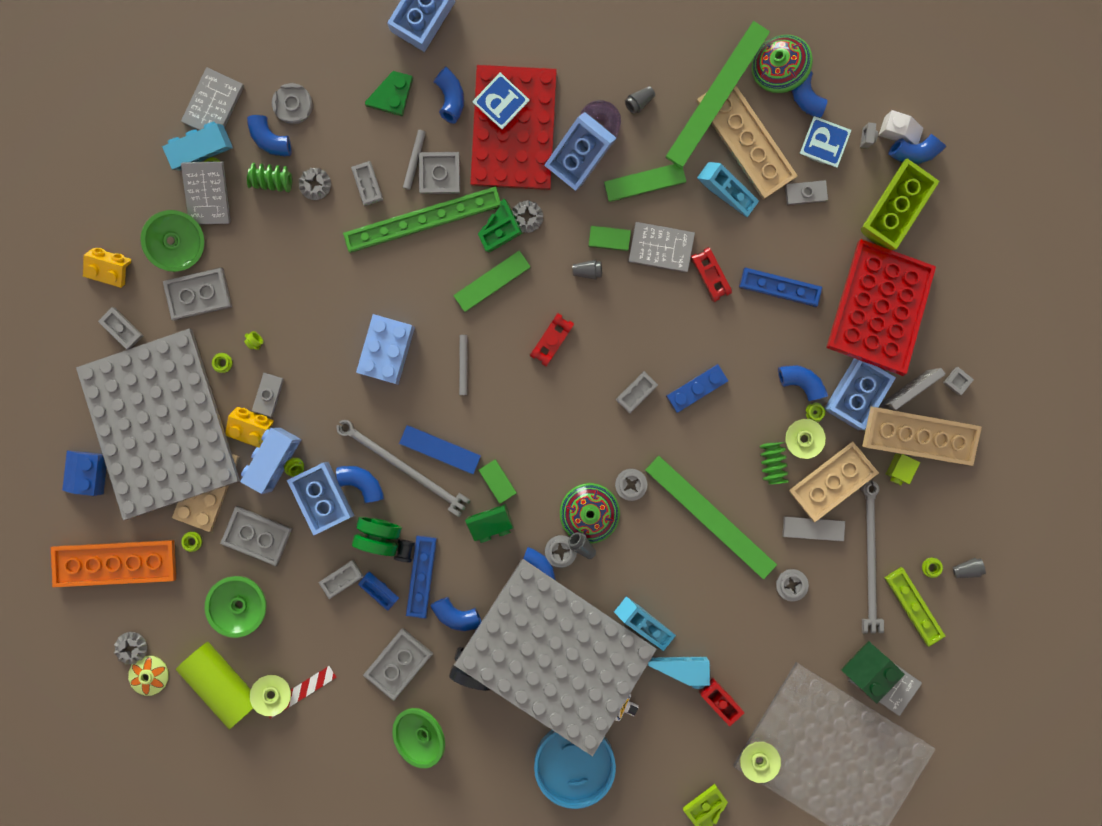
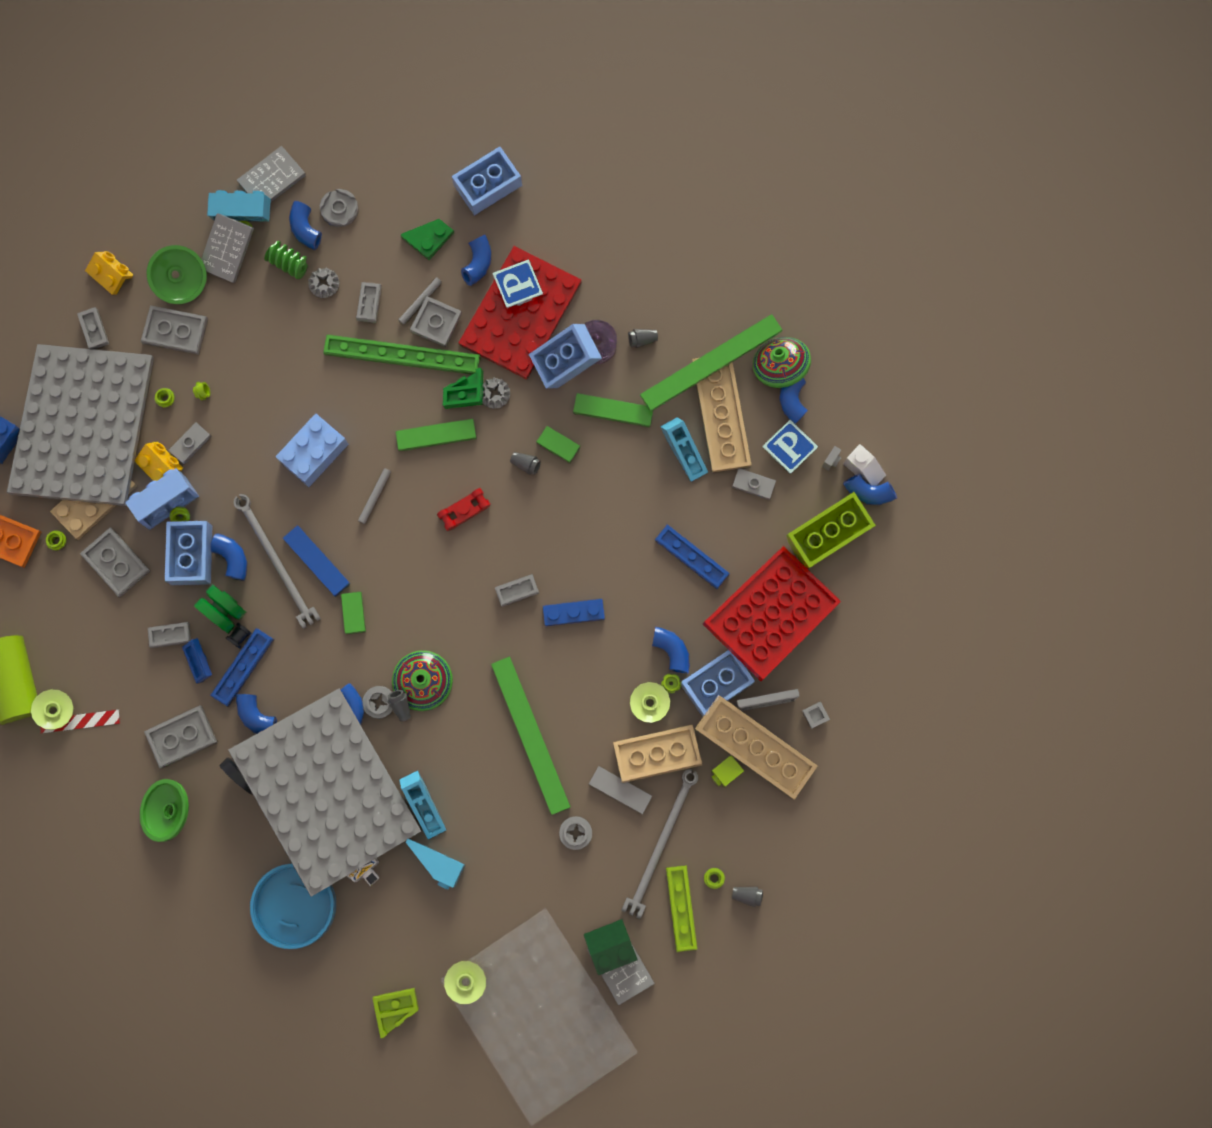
camera: 30 degrees right, 10 degrees down
(224, 613) = (51, 613): bright green dish -> none
(489, 523) = (326, 645): green slope -> none
(630, 494) = (463, 667): light grey gear -> none
(661, 247) = (601, 473): light grey tile -> none
(711, 274) = (634, 516): red plate -> none
(721, 702) = (456, 909): red brick -> none
(774, 463) = (610, 710): bright green piece -> none

